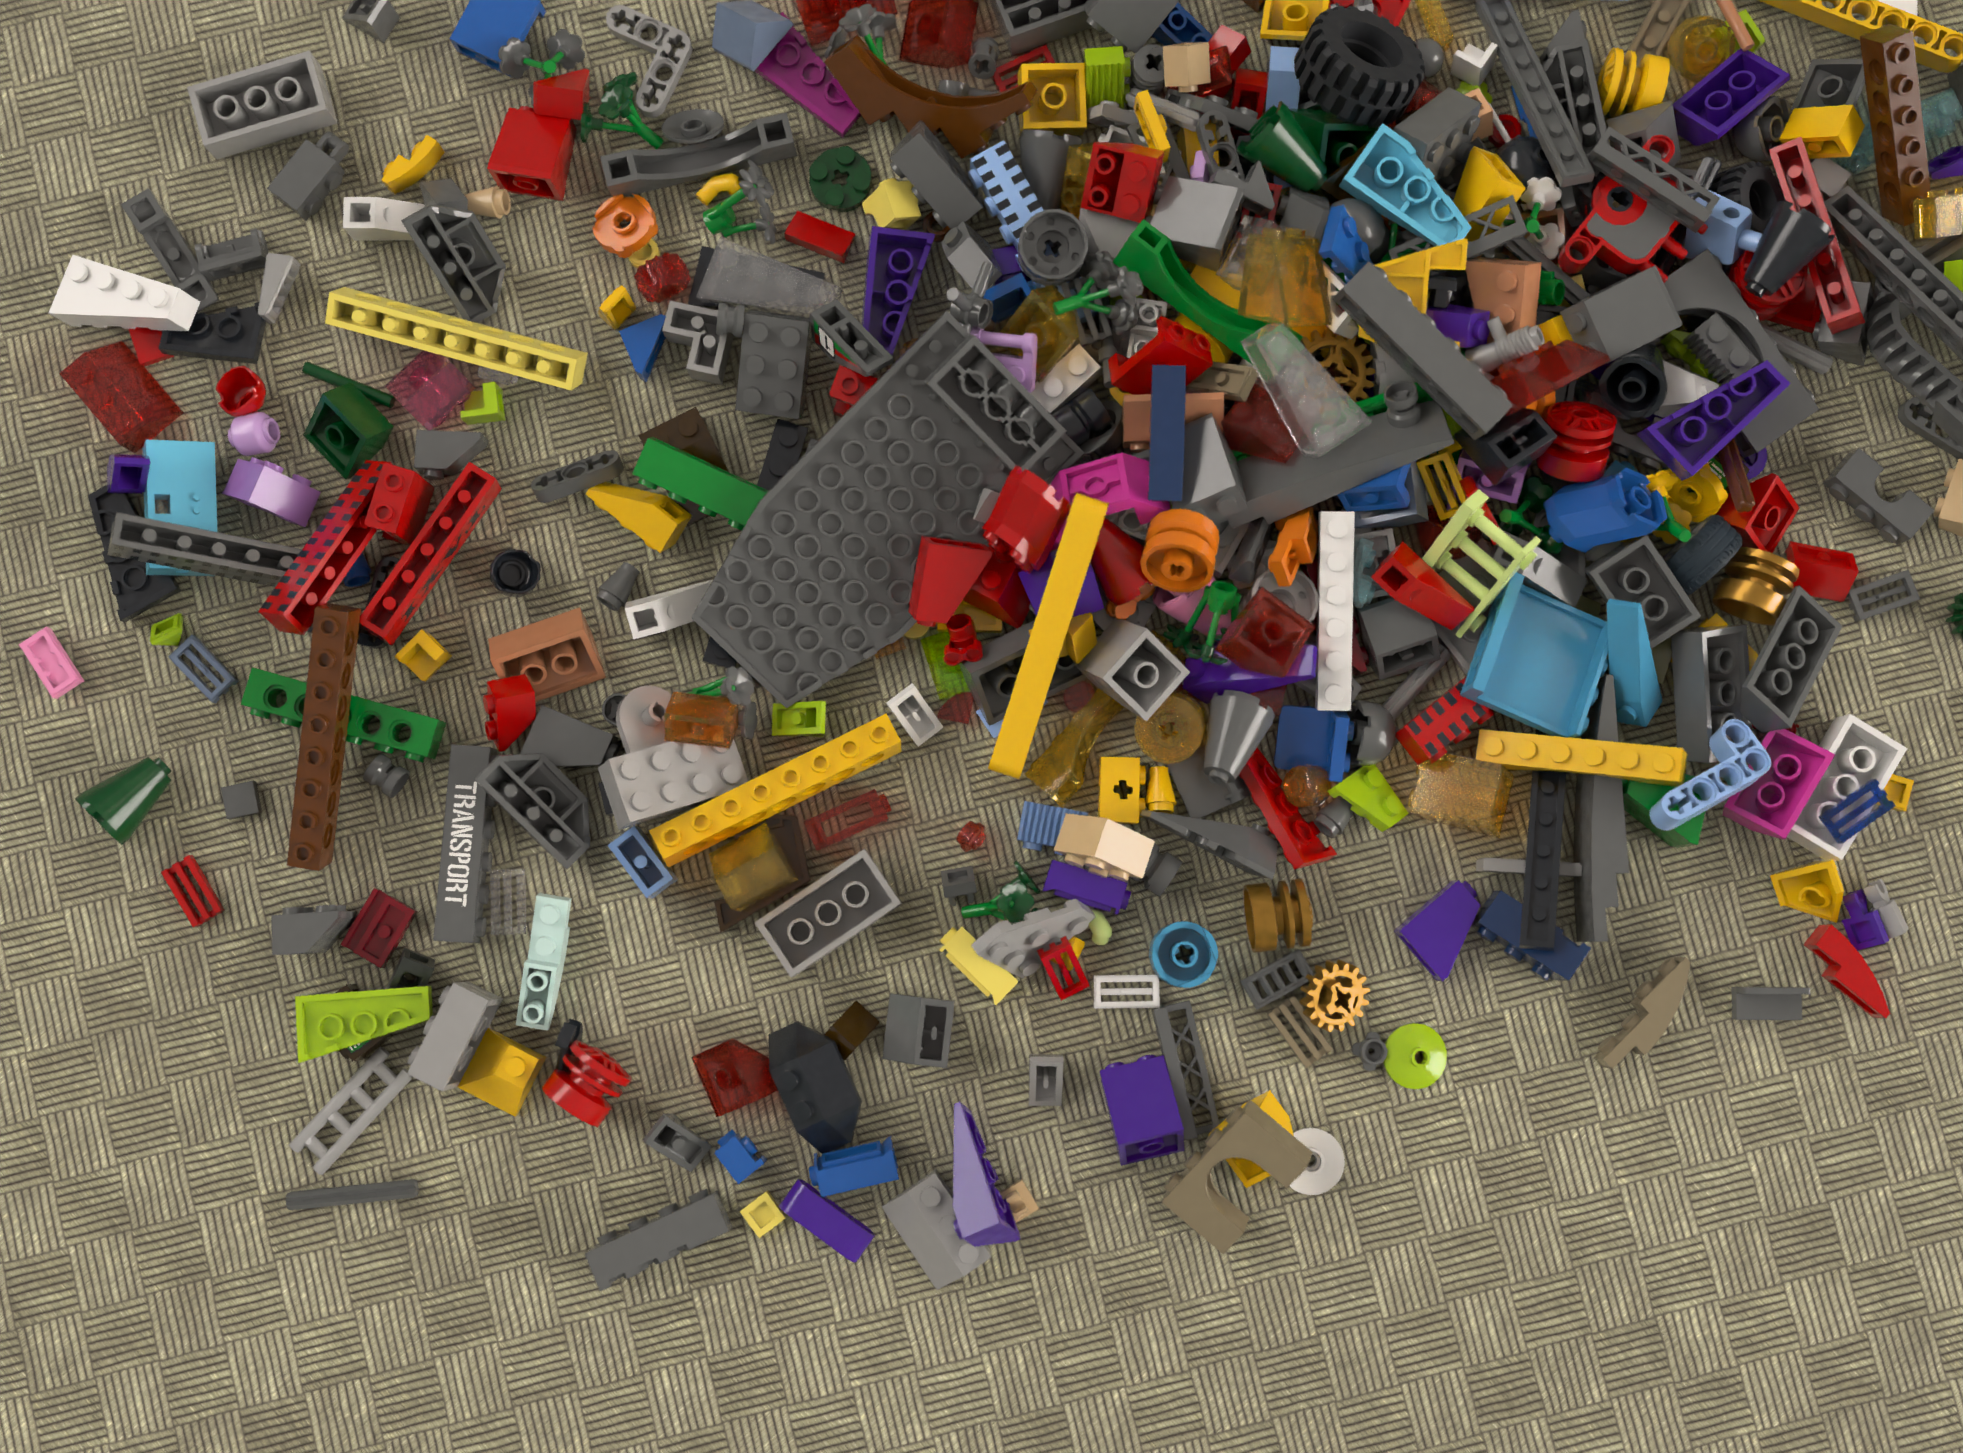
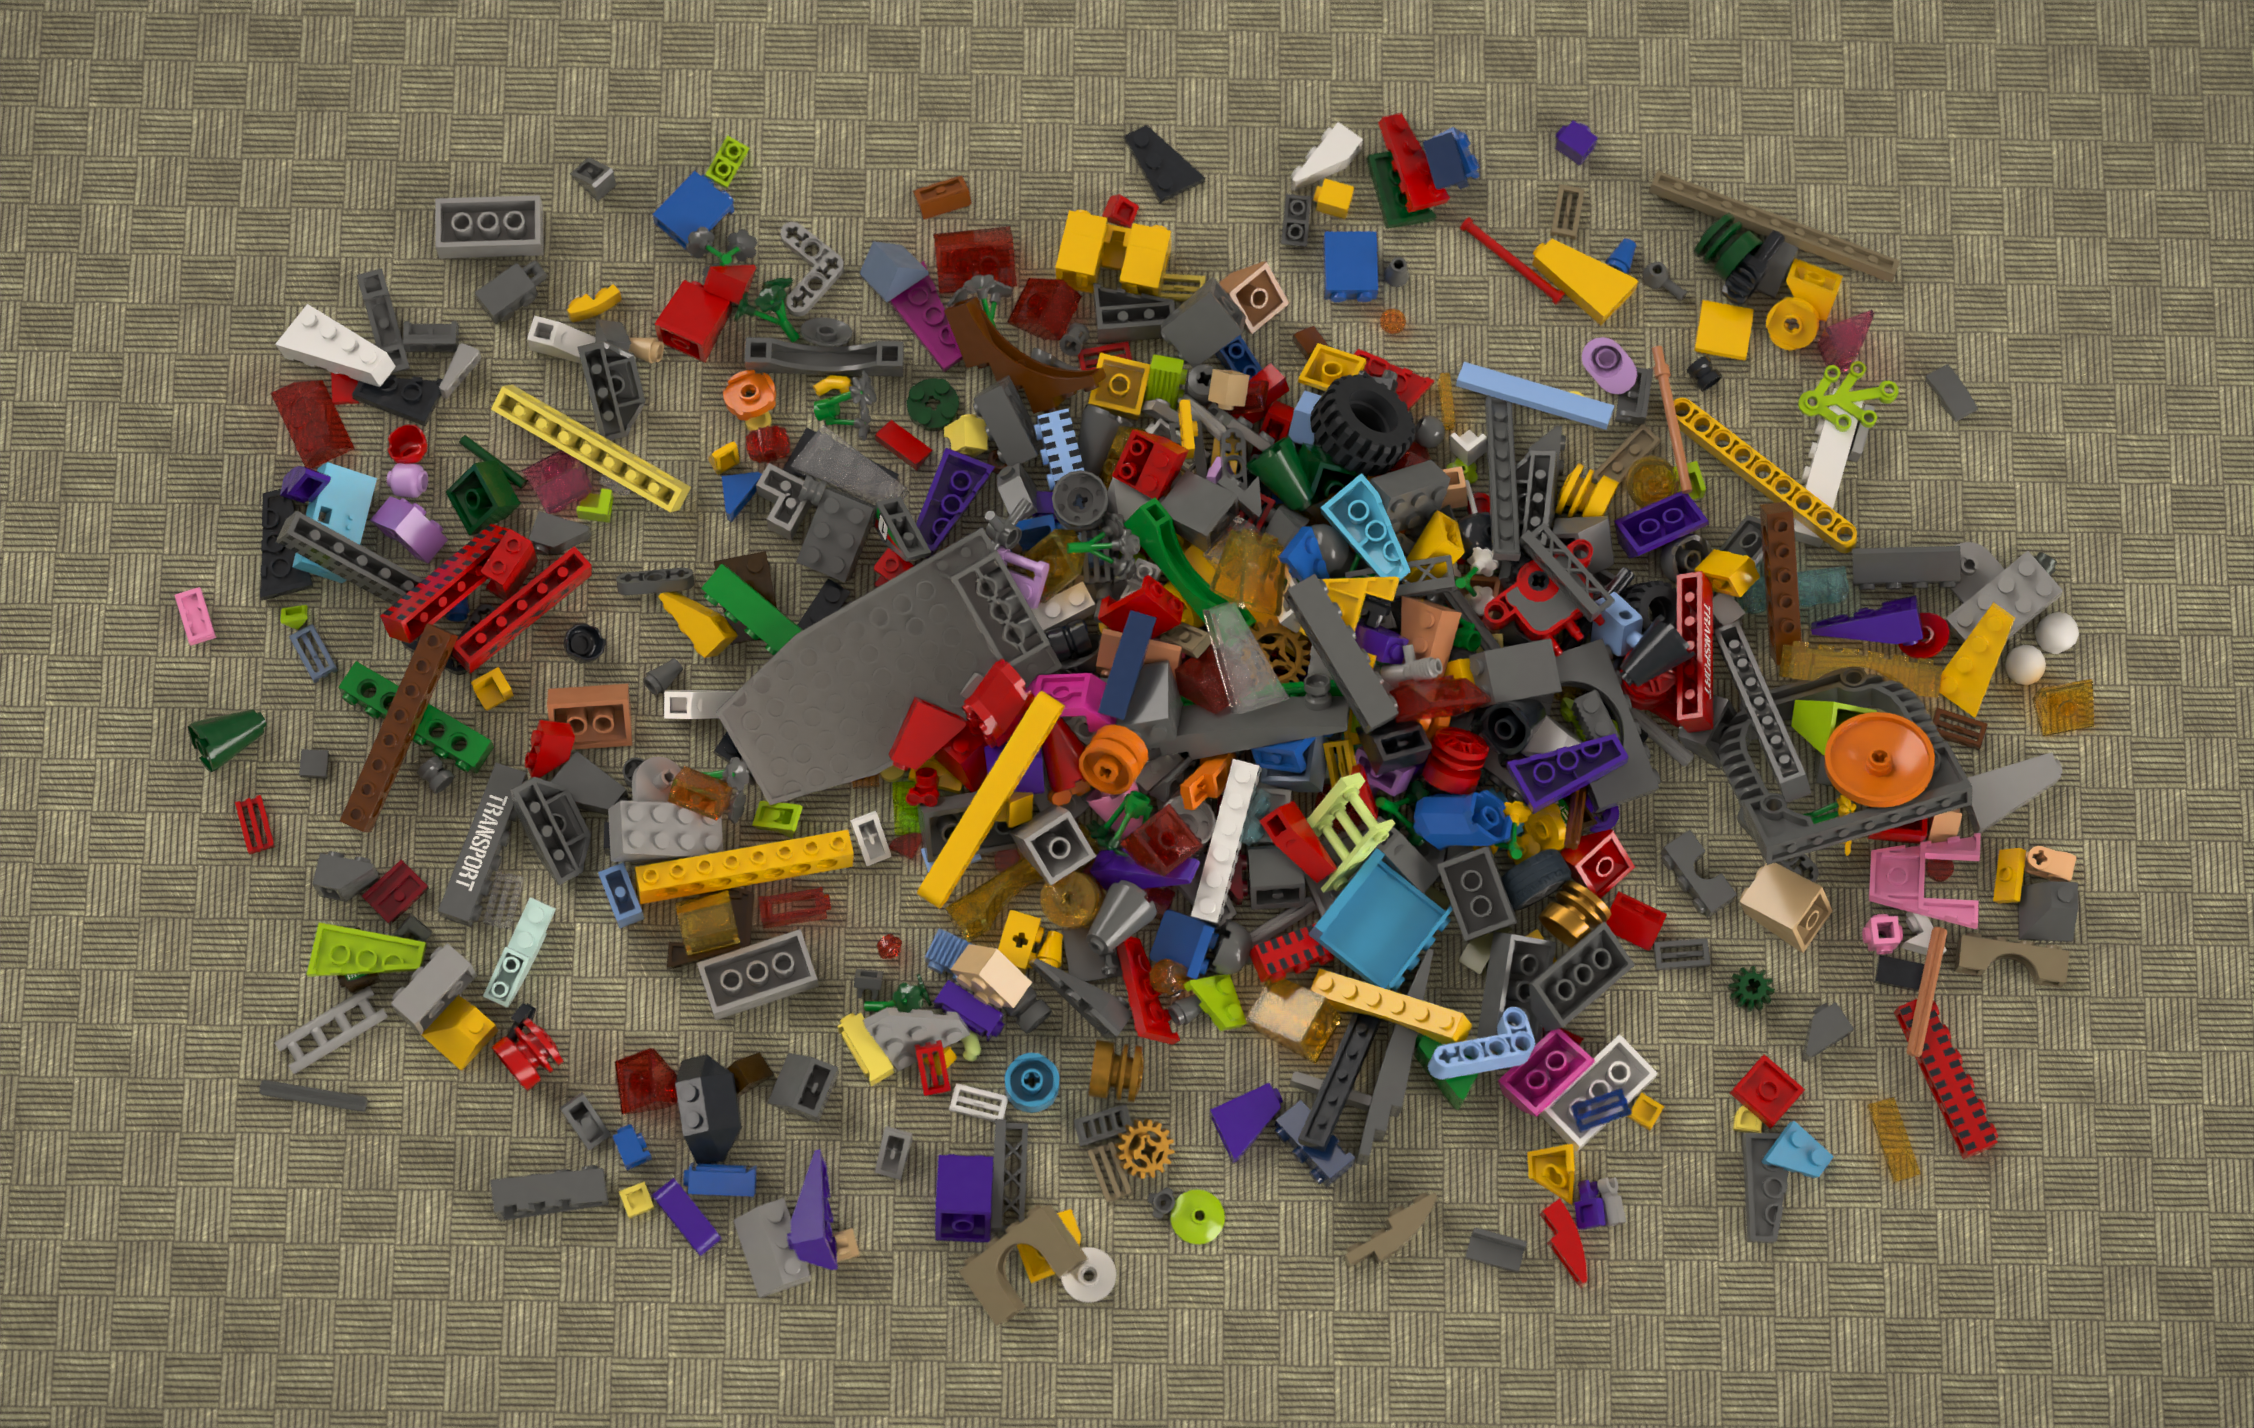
camera: 10 degrees right, 10 degrees down
(1631, 664) = (1452, 956): dark azure slope -> none

